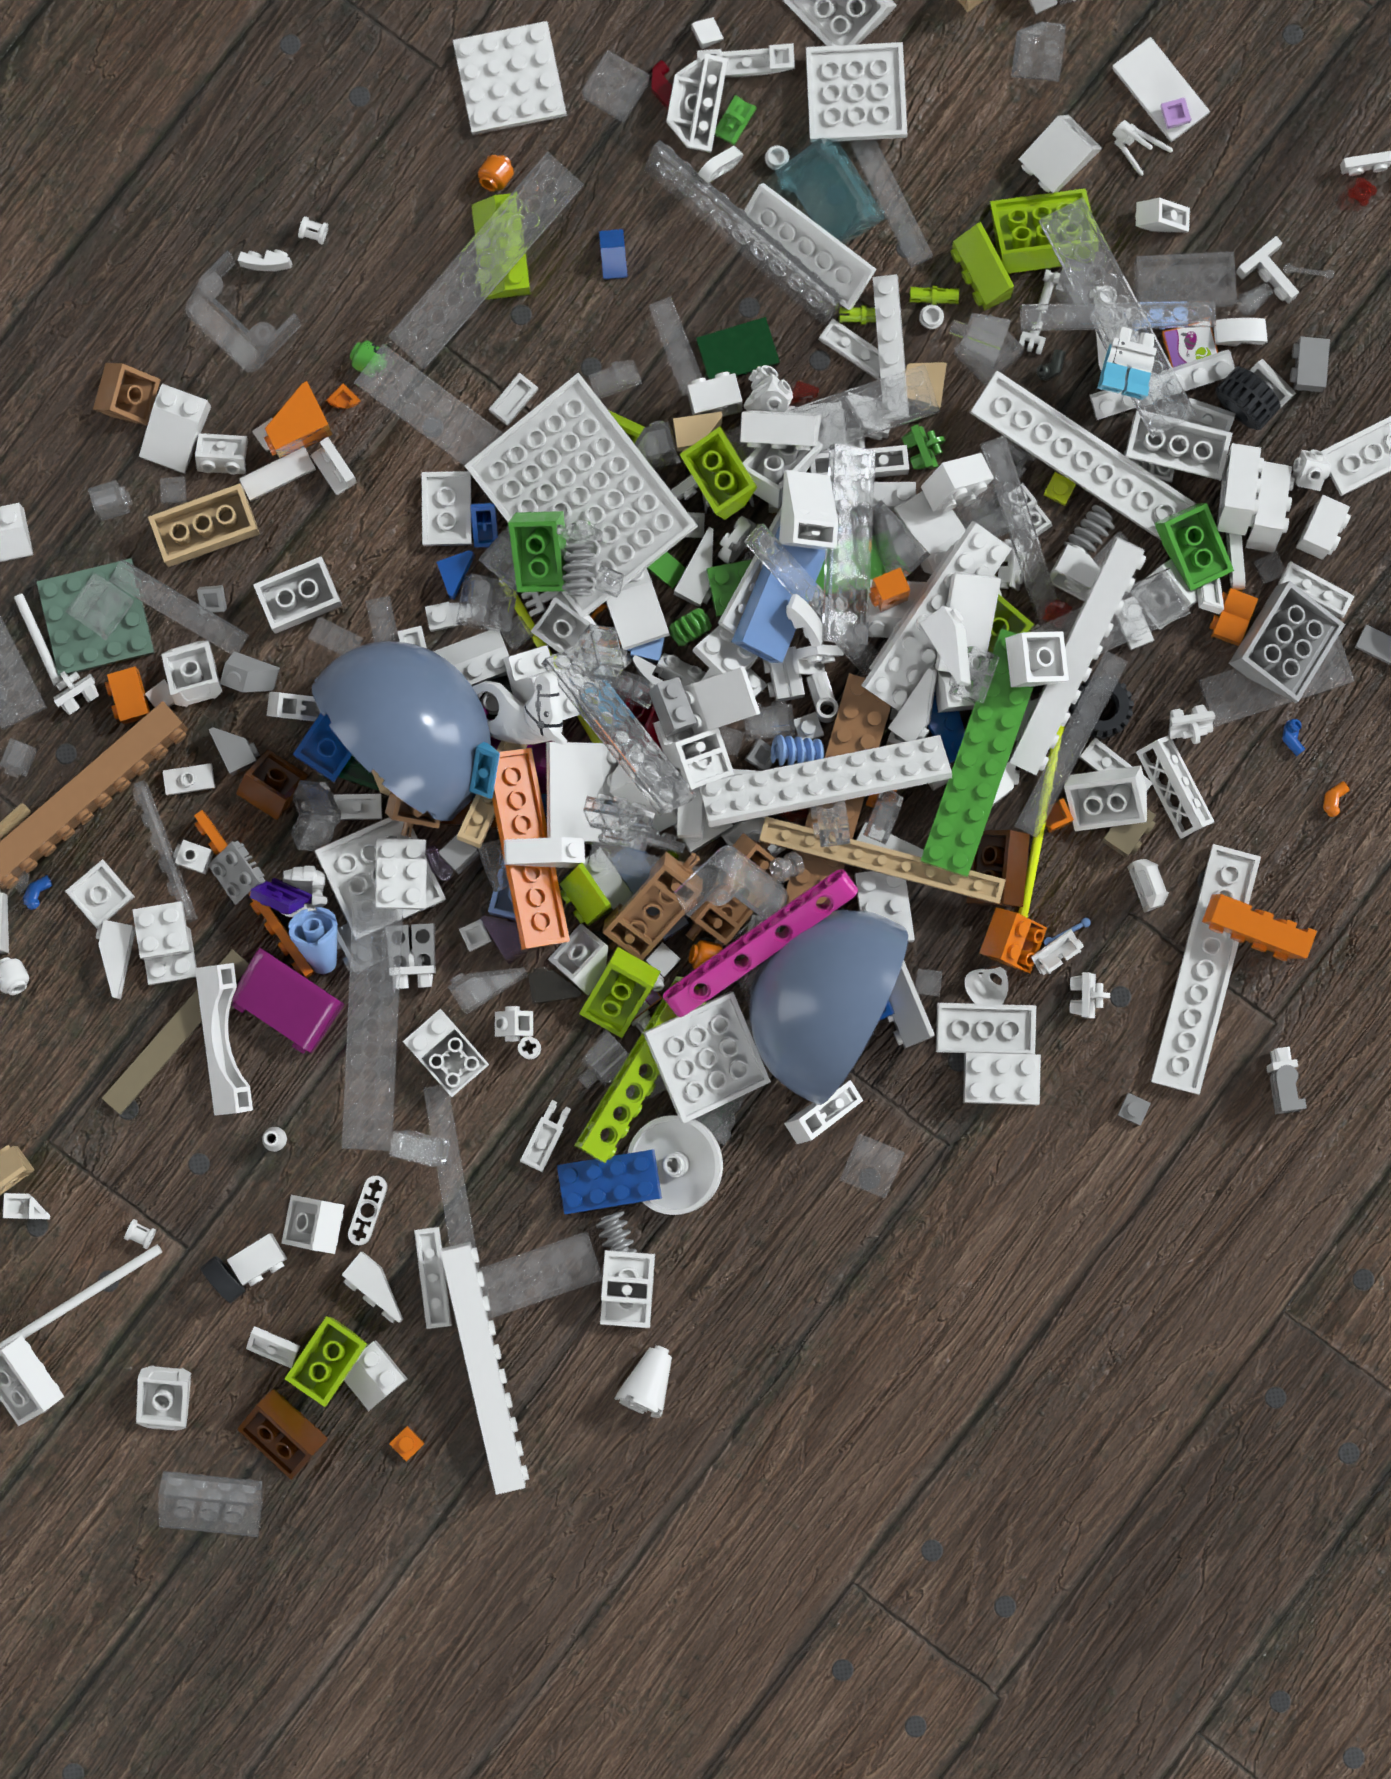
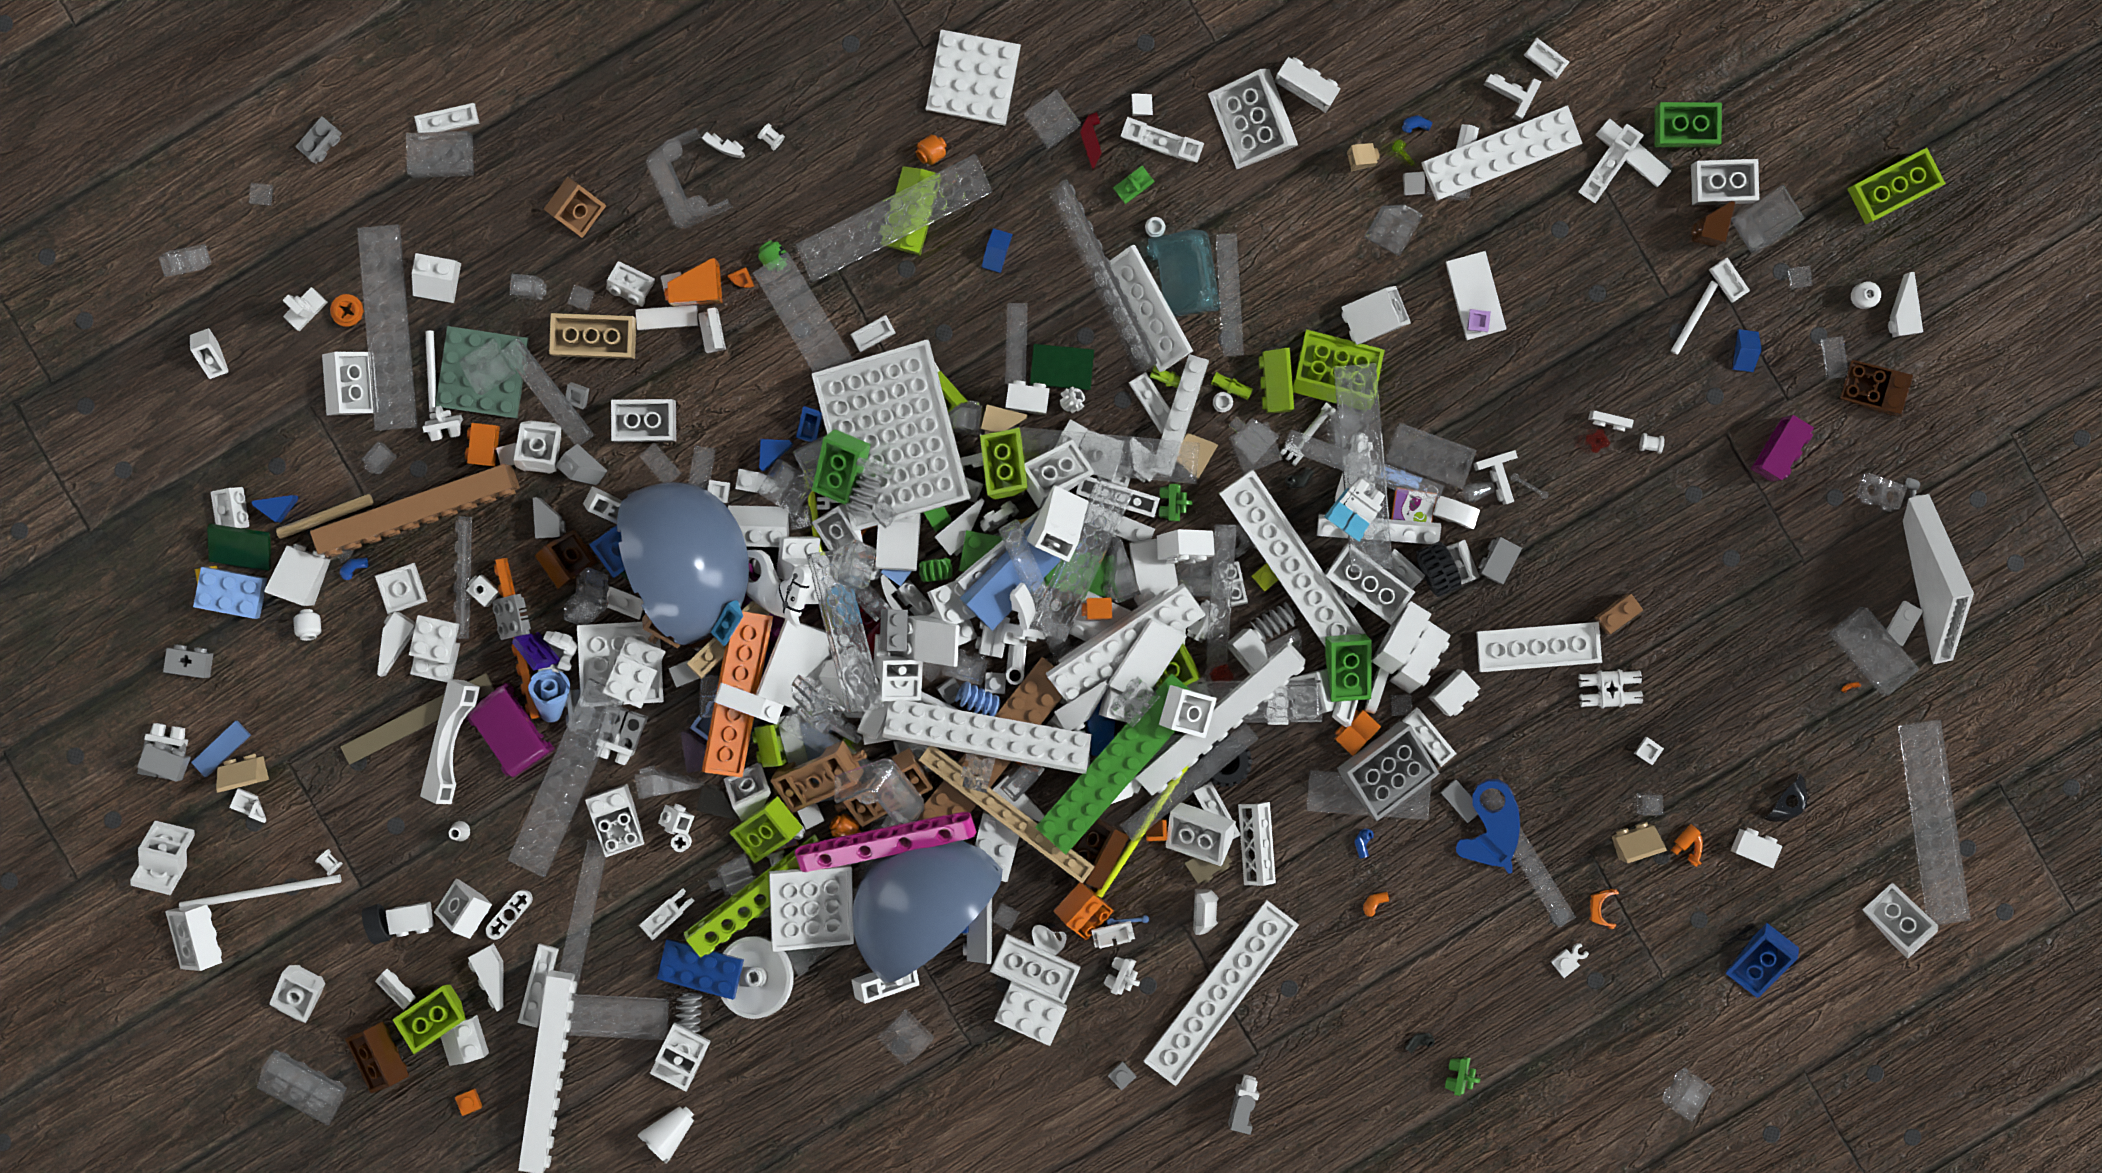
camera: 25 degrees right, 5 degrees up
(174, 428) = (600, 249): white slope -> none
(189, 779) = (504, 528): white plate -> none
(419, 1148) = (565, 886): clear brick -> none
(438, 865) = (665, 673): clear purple arm -> none
(446, 508) = (786, 398): white plate -> none
(475, 935) = (673, 737): white tile -> none
(615, 379) = (958, 350): clear slope -> none
(697, 101) = (1109, 159): white wedge -> none
(720, 164) = (1107, 216): white beam -> none
(770, 395) = (1069, 417): white hand -> none
(780, 429) = (1065, 447): white slope -> none
(786, 867) = (929, 789): clear wheel -> none
(804, 391) = (1098, 420): clear red slope -> none
(856, 92) = (1237, 202): white plate -> none
(950, 641) = (1125, 670): white slope -> none
(1127, 134) = (1434, 320): white plant -> none
(1162, 216) = (1434, 397): white slope -> none
(1191, 726) = (1289, 804): white hips -> none
(1258, 928) = (1273, 980): orange wedge -> none
(1311, 469) = (1464, 644): white brick -> none

